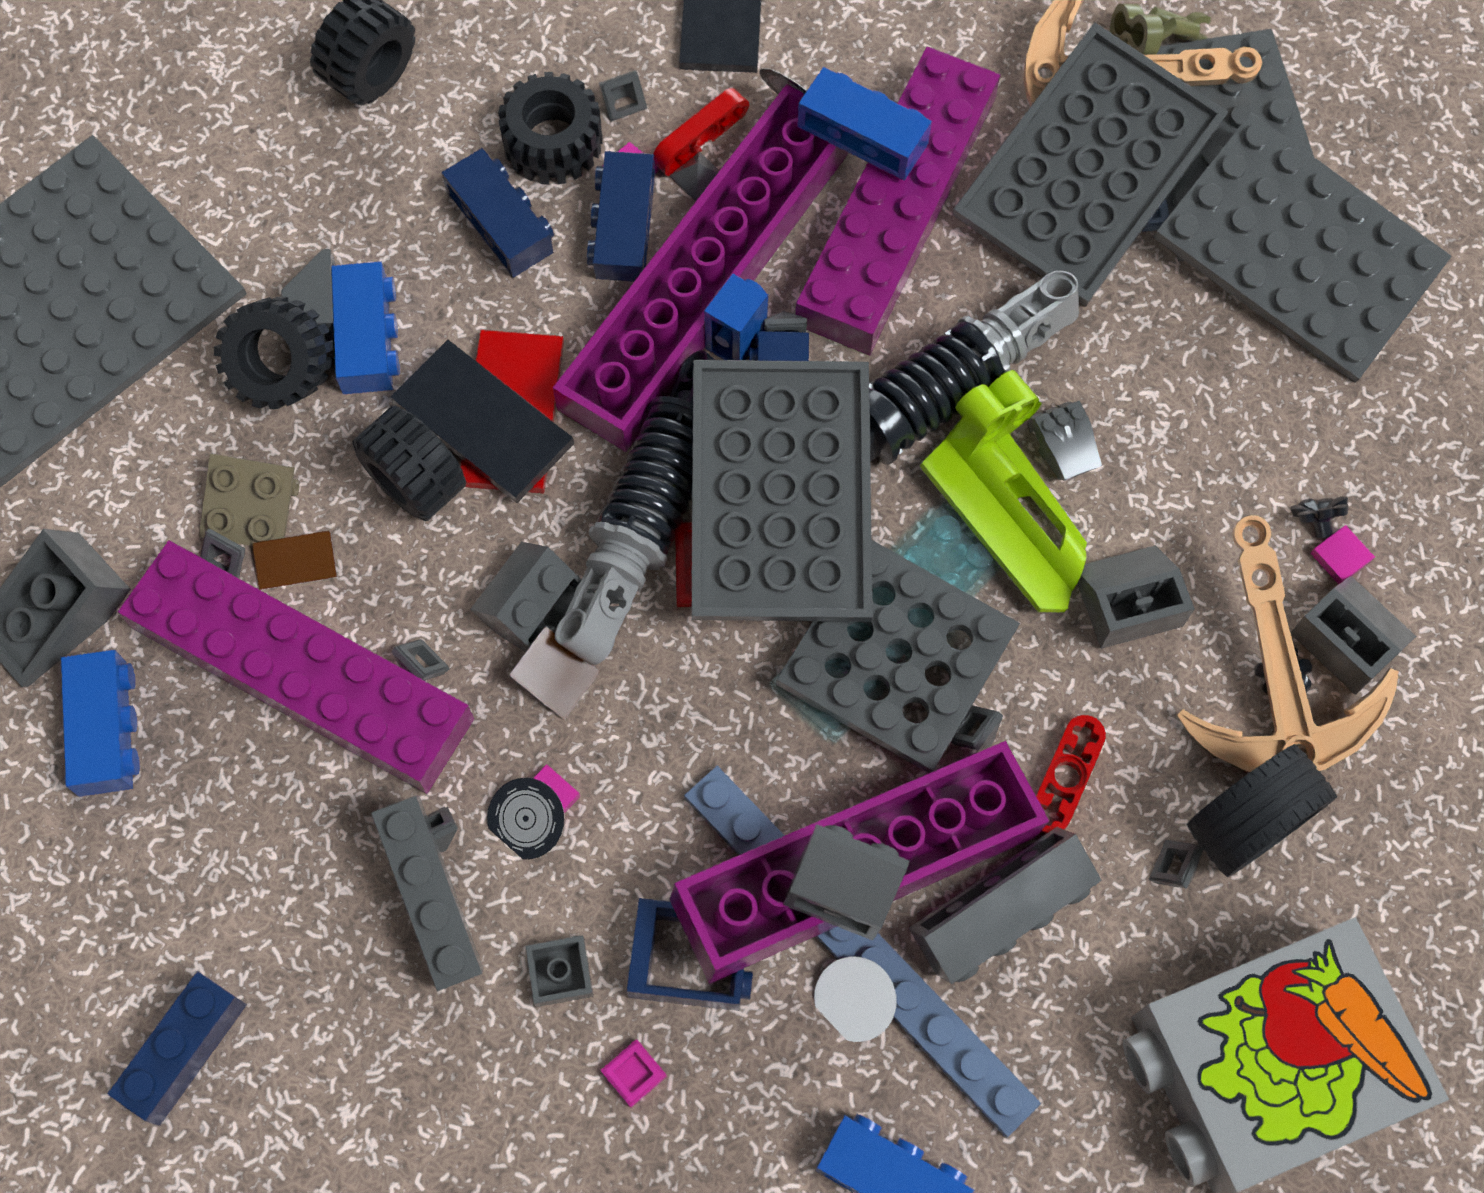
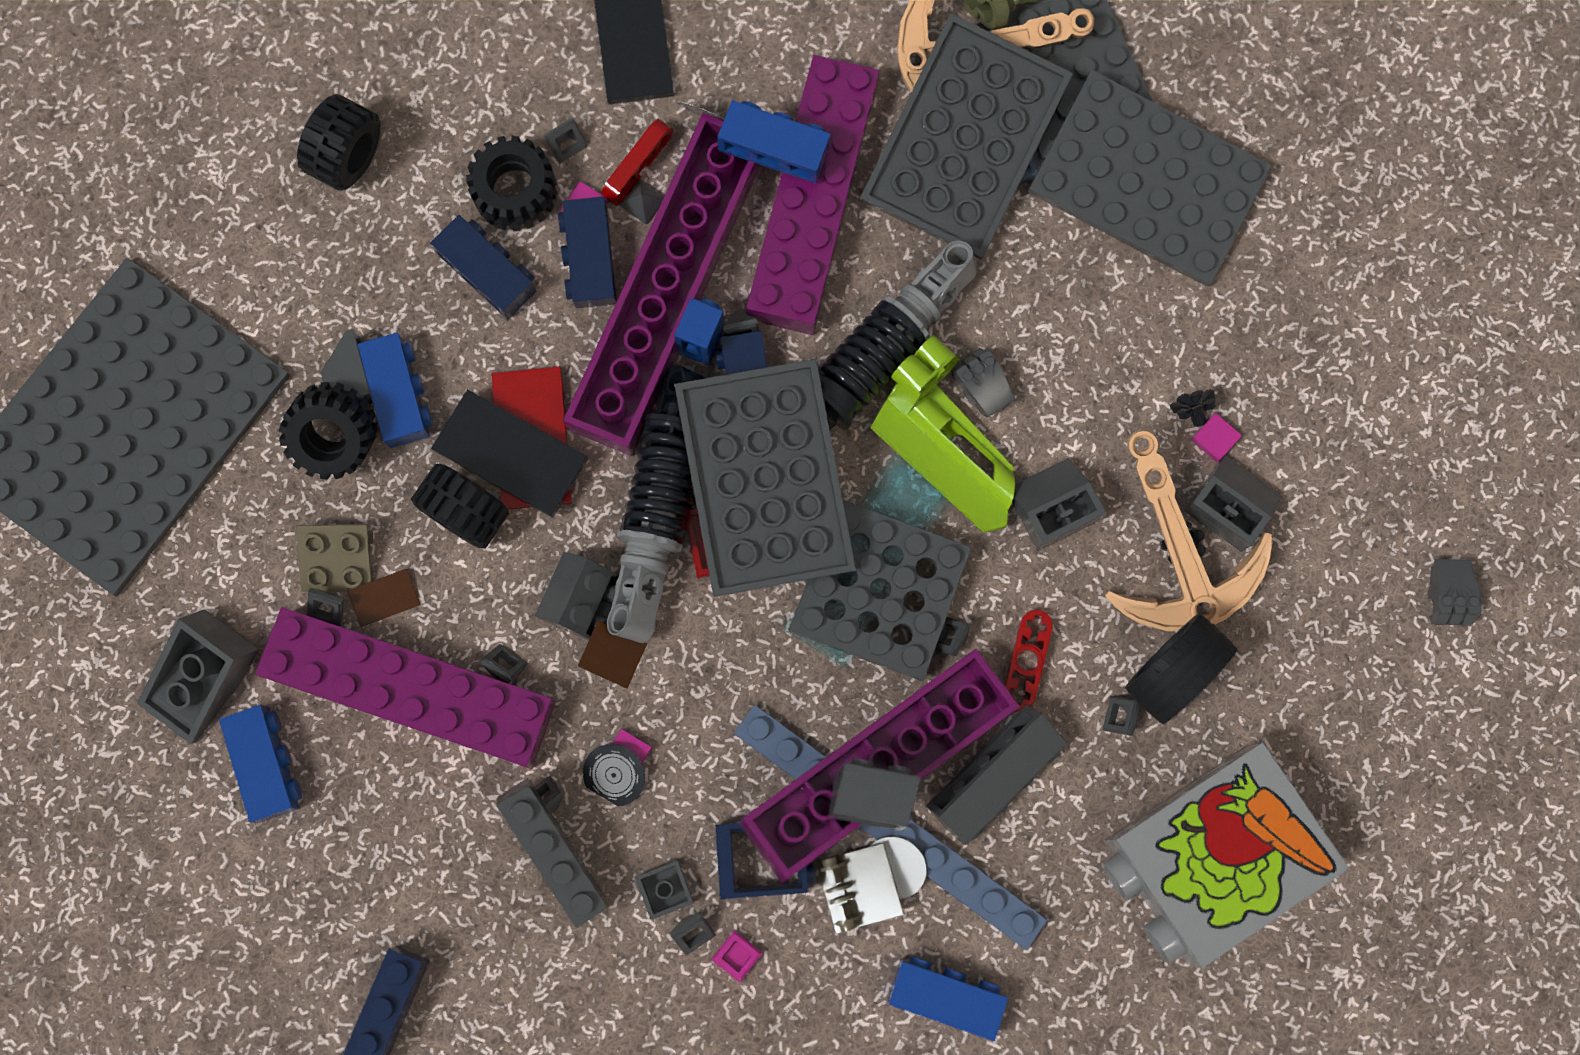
camera: 10 degrees left, 10 degrees up
(567, 1027) = (687, 925): none -> dark grey slope
(807, 1015) = (860, 888): none -> hinge

